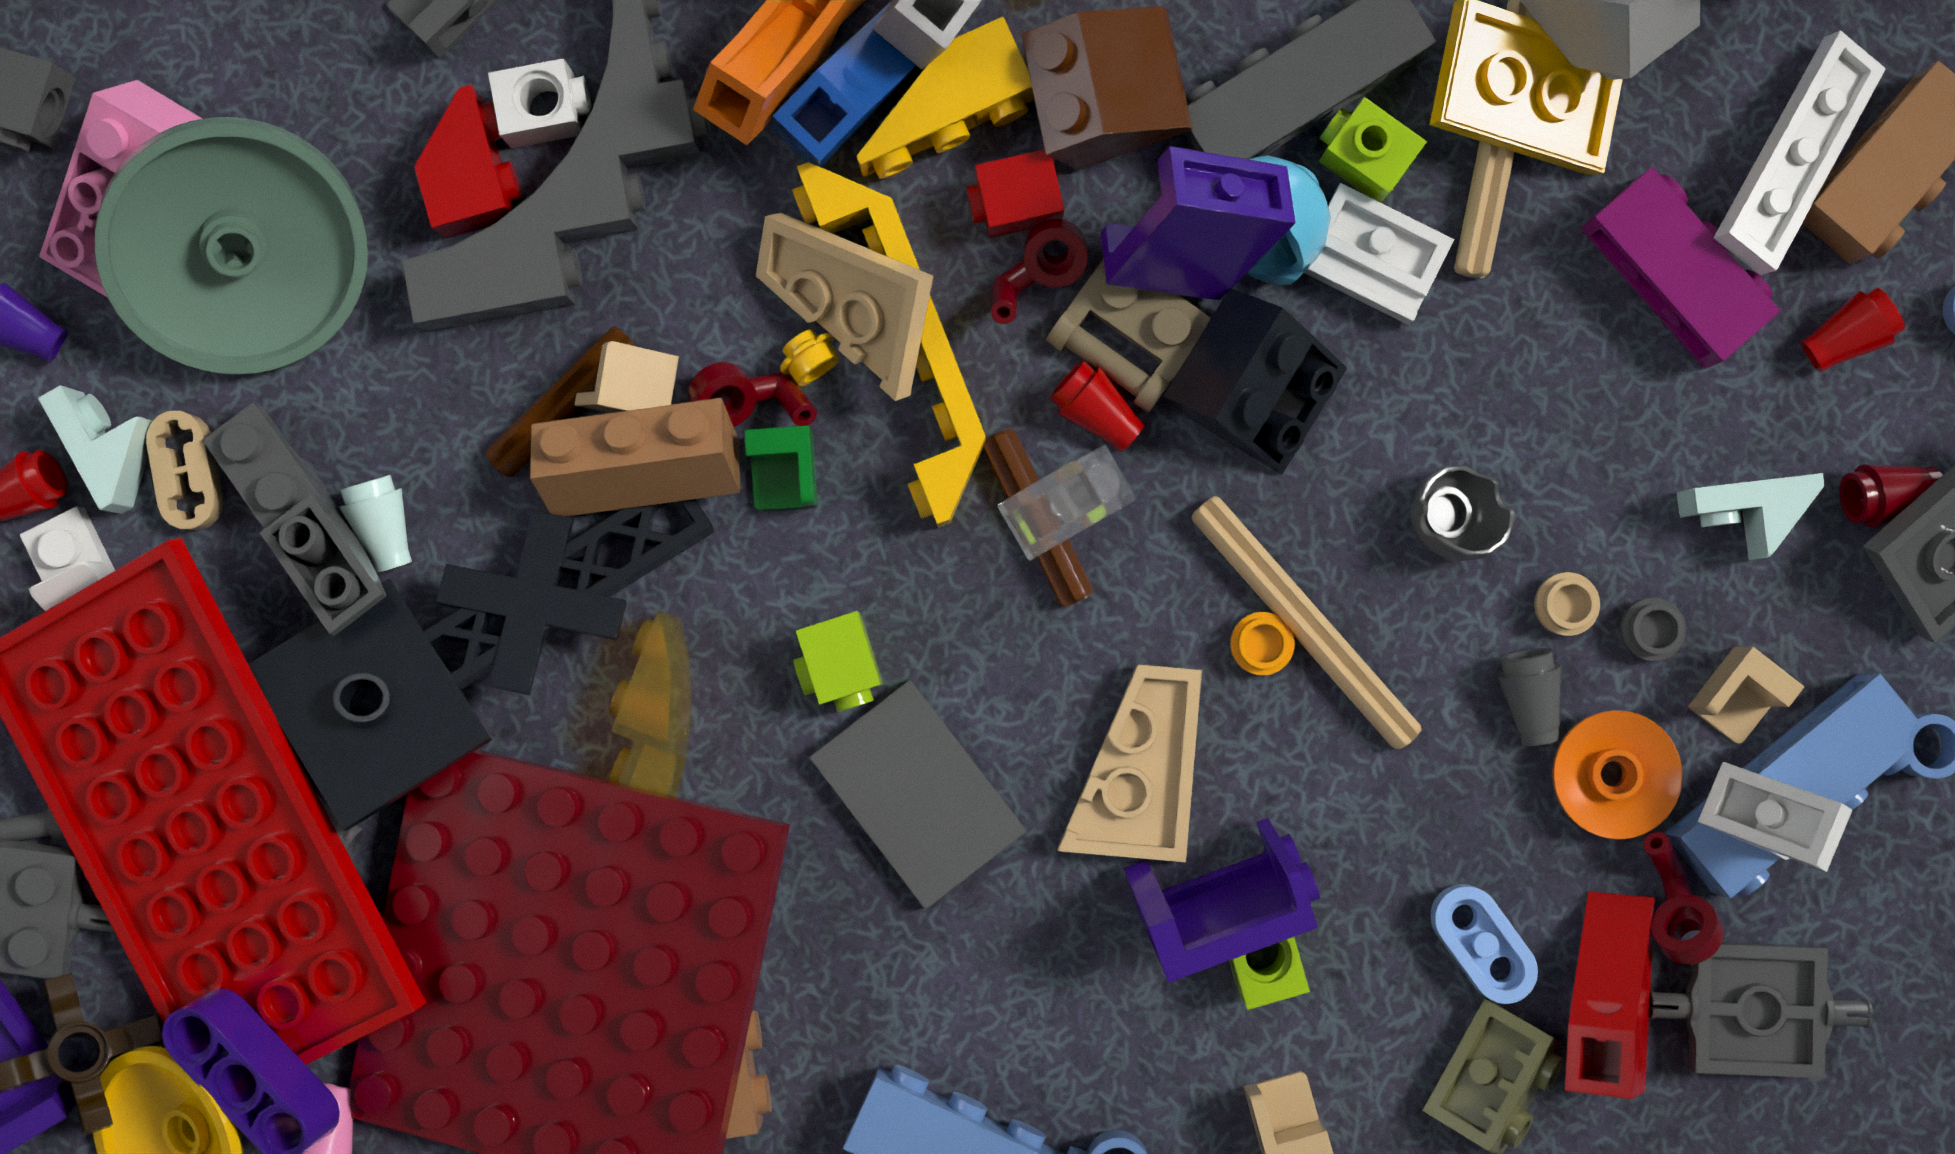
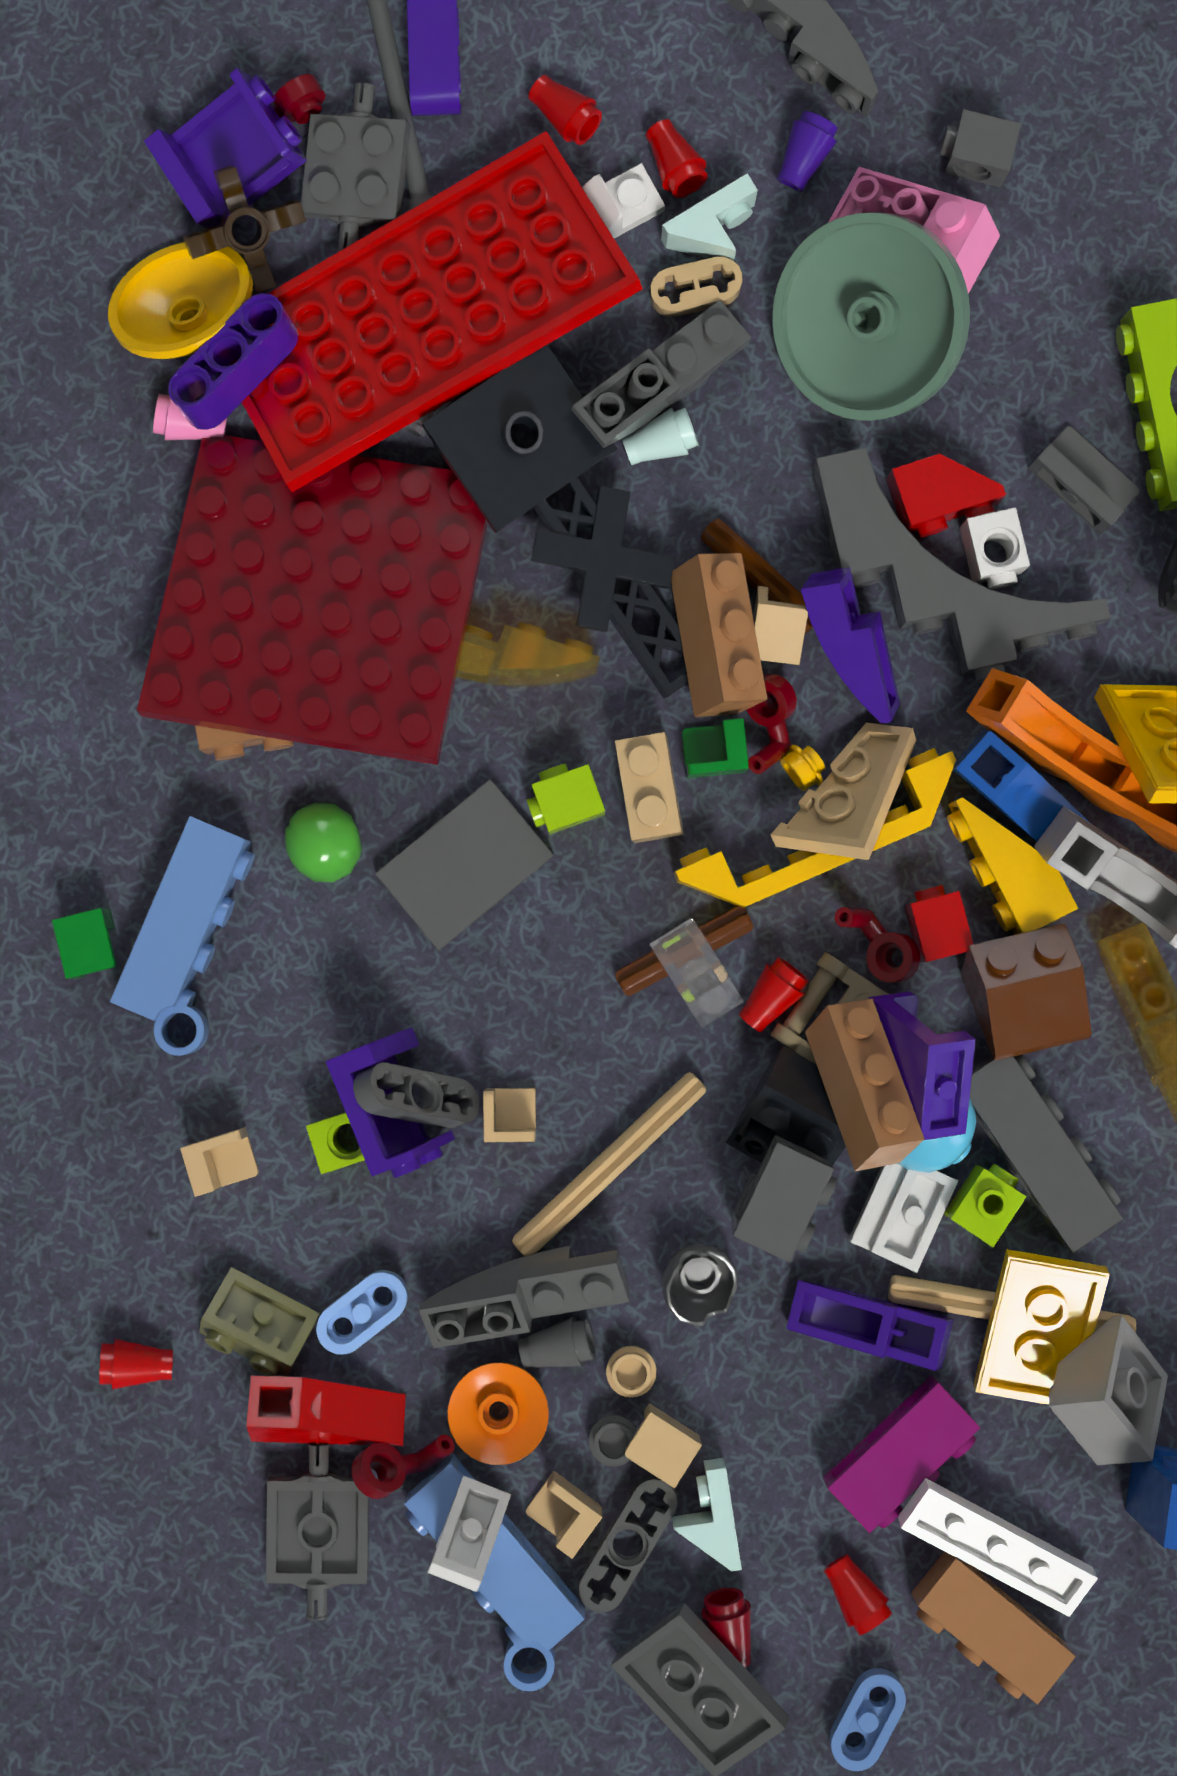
camera: 85 degrees right, 0 degrees up
(650, 287) = (852, 641): none -> dark purple slope
(828, 554) = (649, 787): none -> tan brick
(882, 975) = (323, 842): none -> bright green hair
(1143, 773) = (487, 1040): tan wing -> none
(1219, 293) = (864, 1085): none -> medium nougat brick
(1222, 886) = (400, 1103): none -> dark grey beam
(1240, 747) = (509, 1114): none -> tan panel
(1262, 643) = (591, 1130): light orange plate -> none
(1360, 403) = (781, 1199): none -> dark grey brick
(1467, 752) = (513, 1293): none -> dark grey slope
(1517, 301) = (870, 1324): none -> dark purple slope
(1663, 565) = (663, 1446): none -> tan panel
(1831, 626) = (597, 1569): none -> dark grey beam

